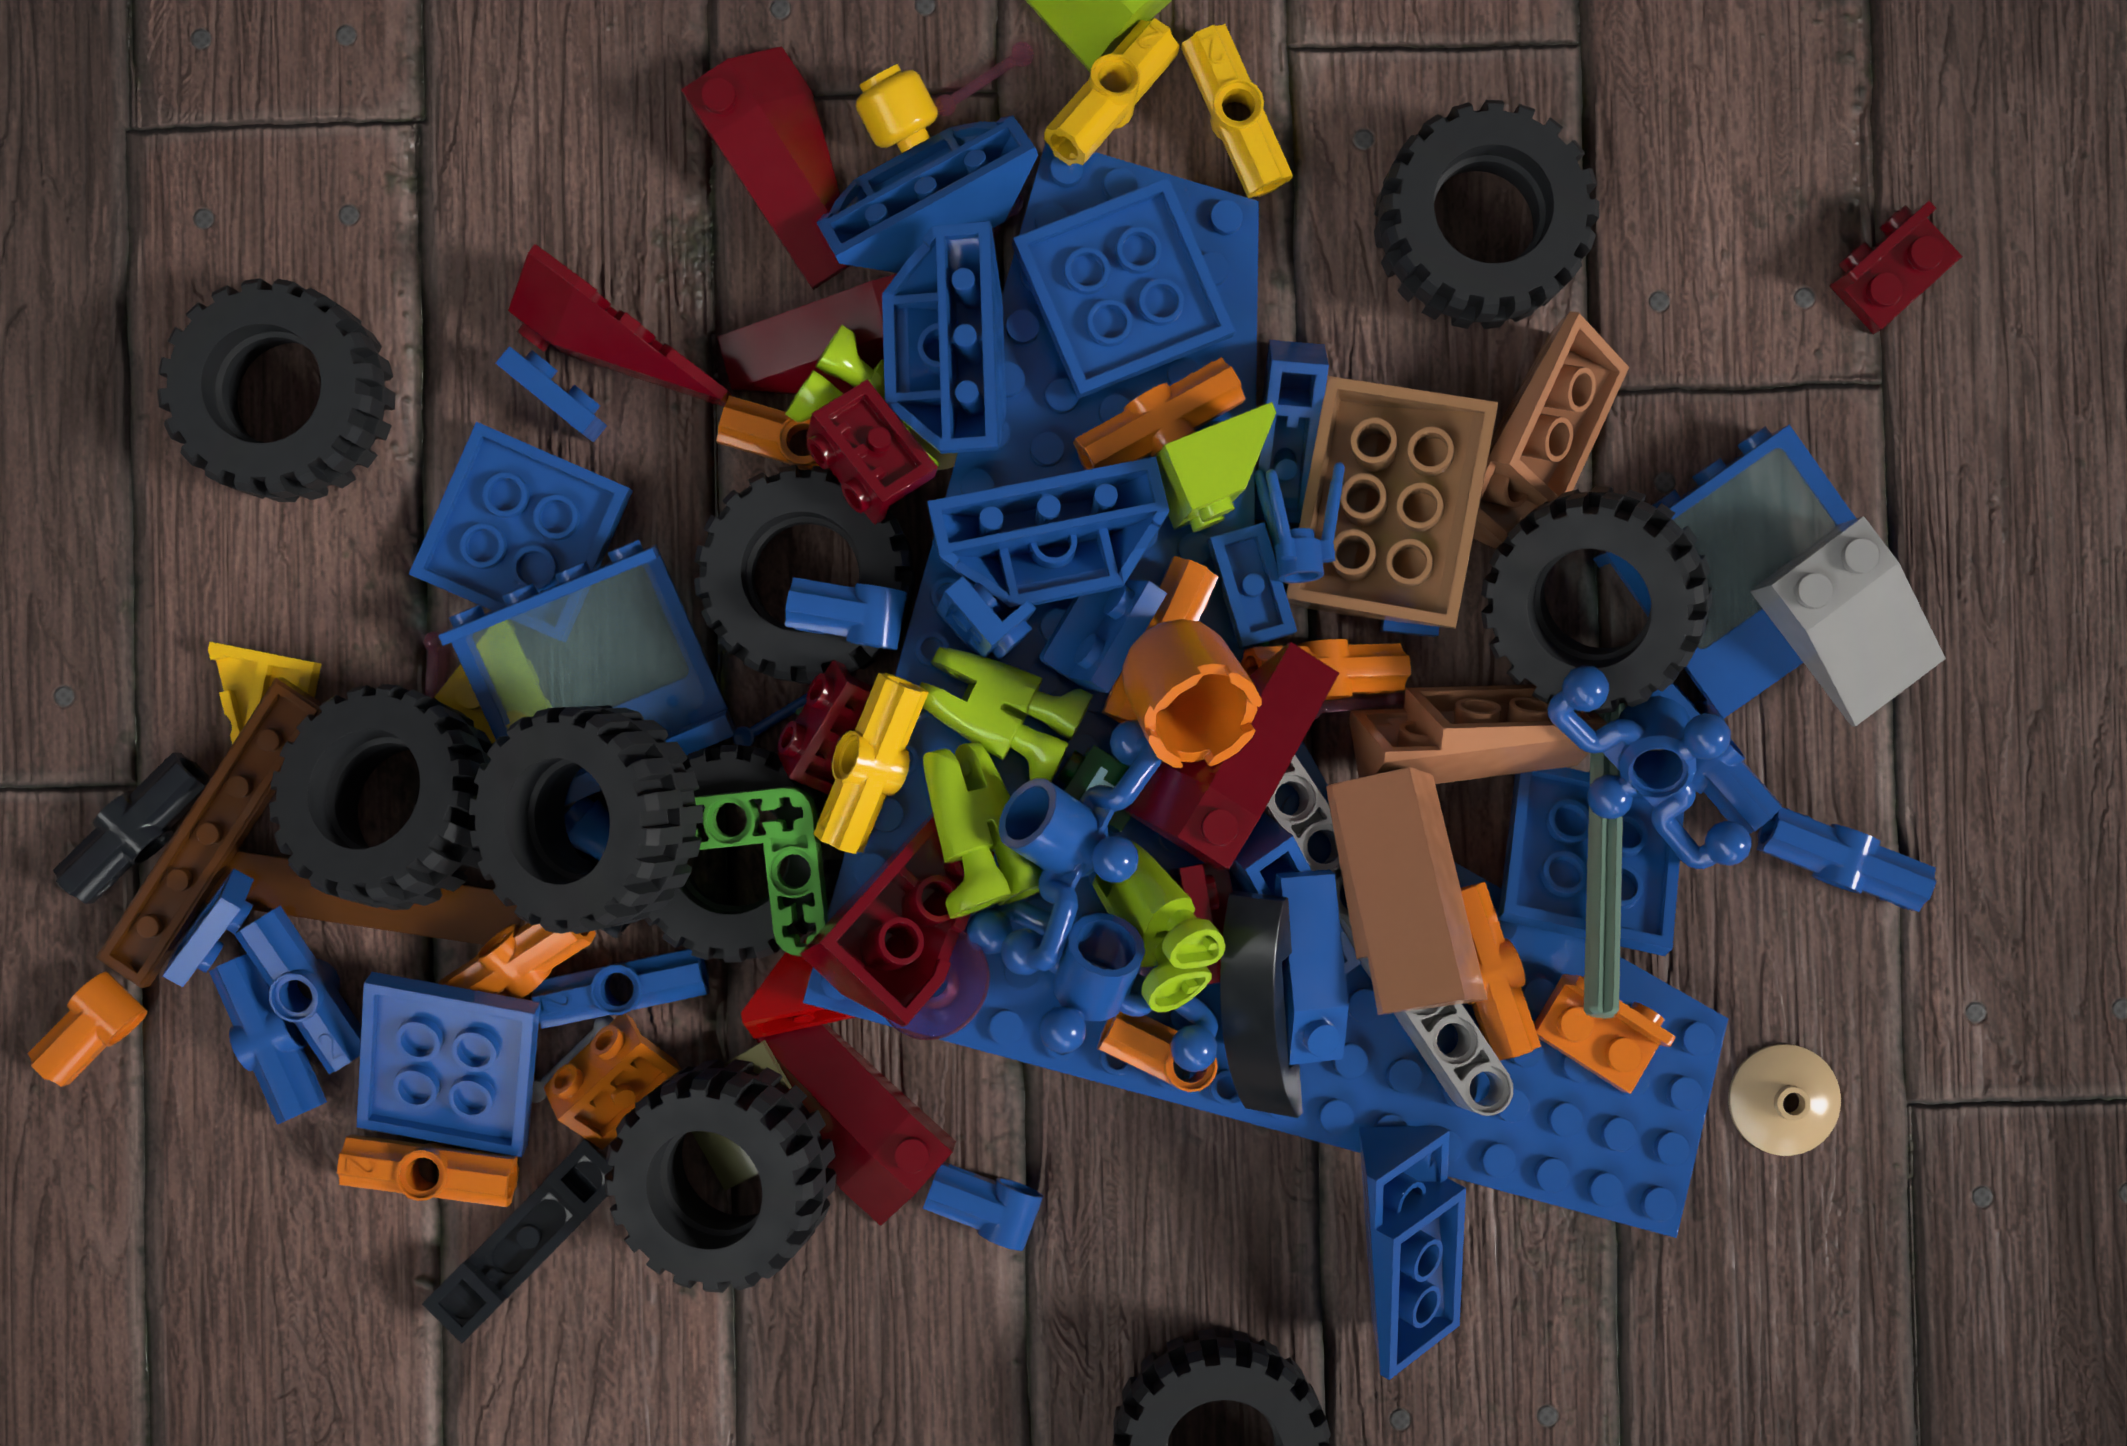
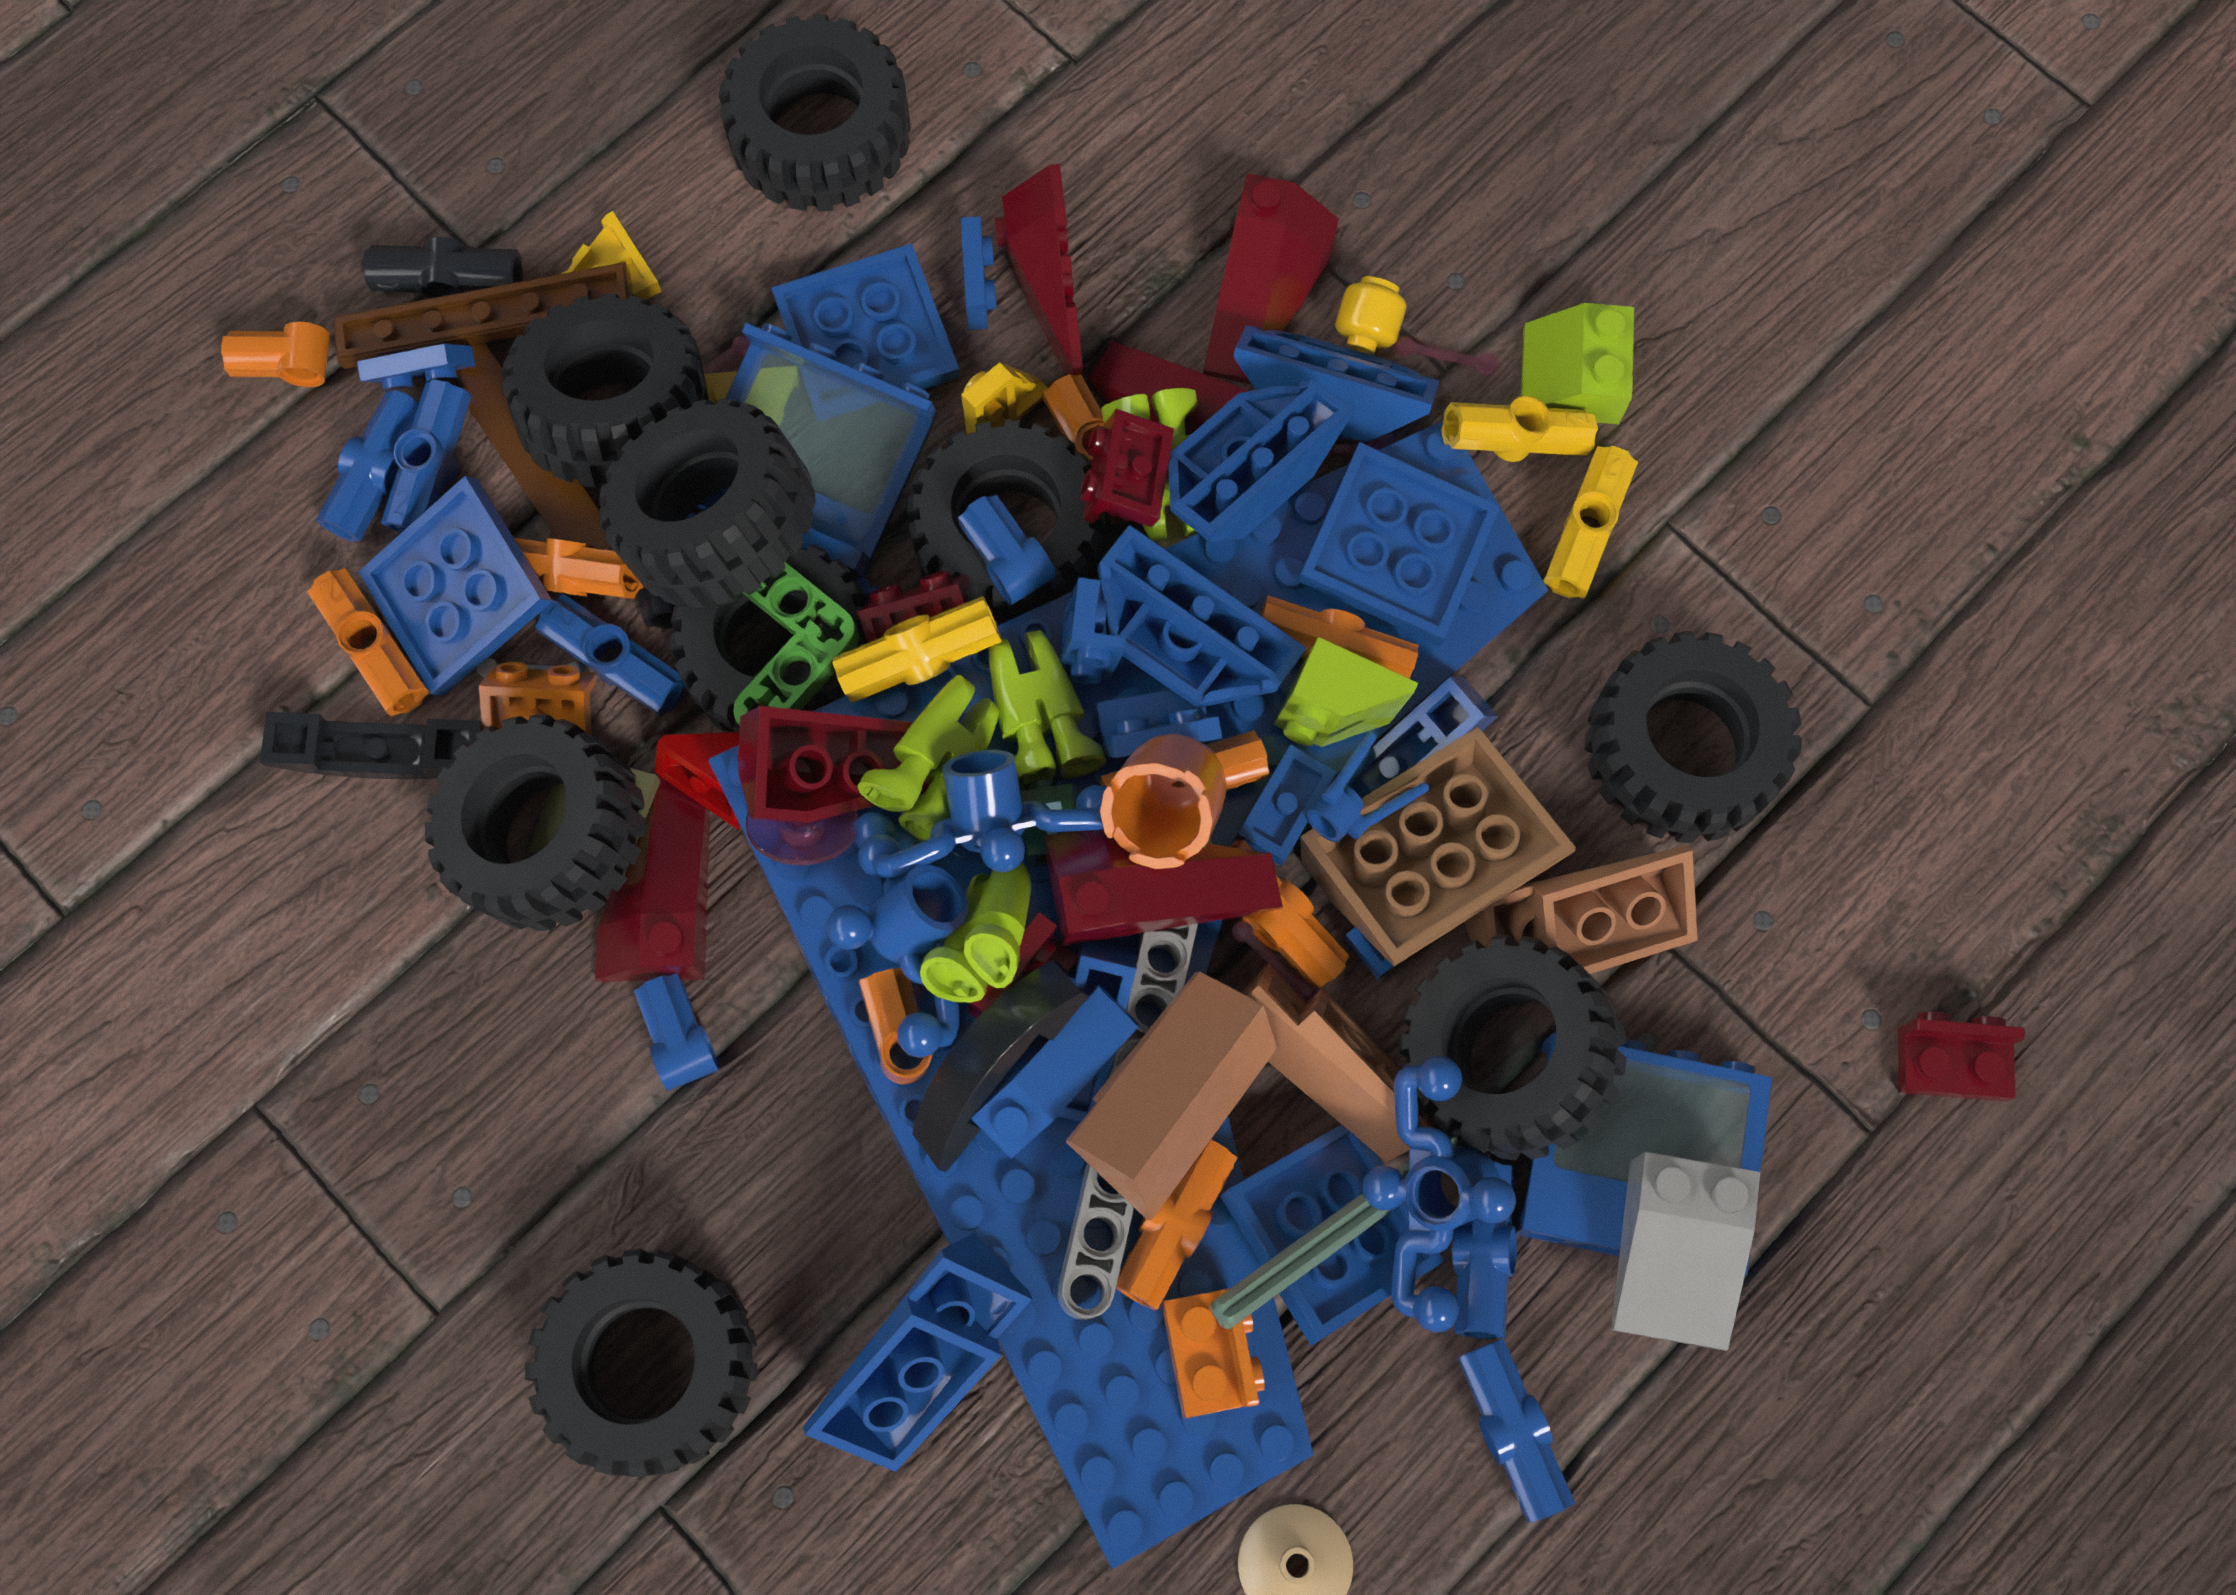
camera: 45 degrees right, 15 degrees down
(691, 489) = (1000, 396): none -> yellow wing

